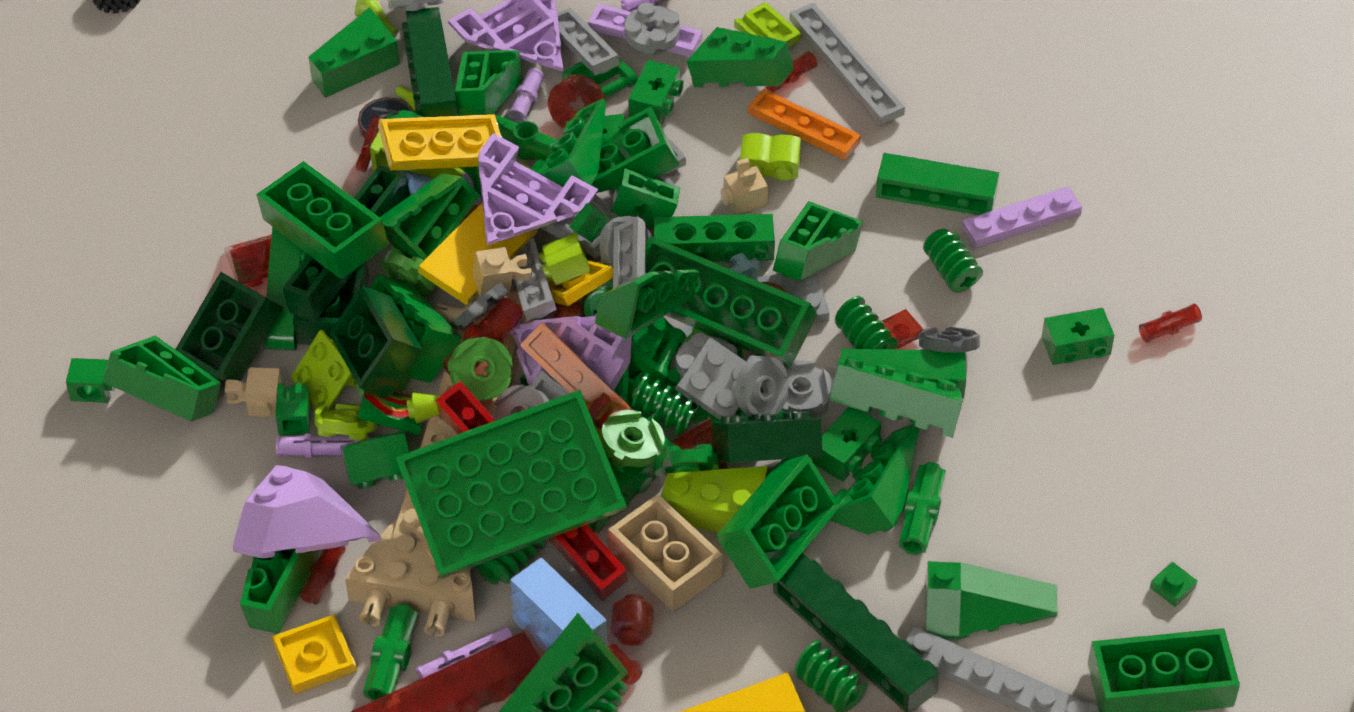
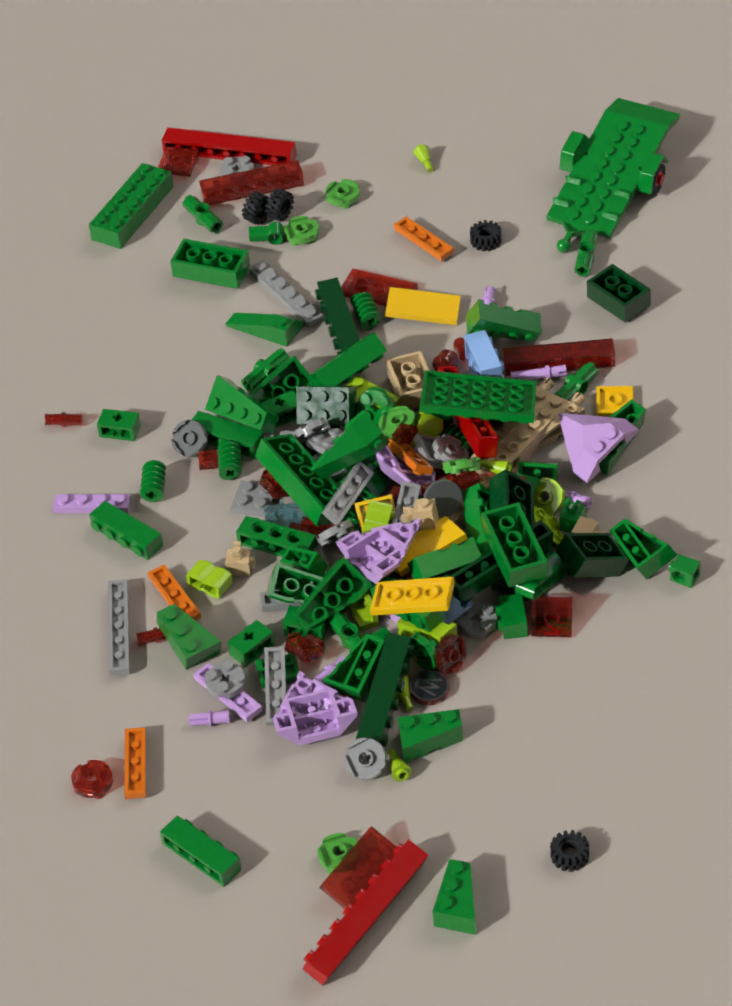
camera: 150 degrees left, 5 degrees down
(589, 222) = (352, 525): green plate -> none
(767, 23) = (150, 666): lime plate -> none
(816, 241) = (226, 505): green wedge -> none
(1173, 584) = (169, 307): green plate -> none

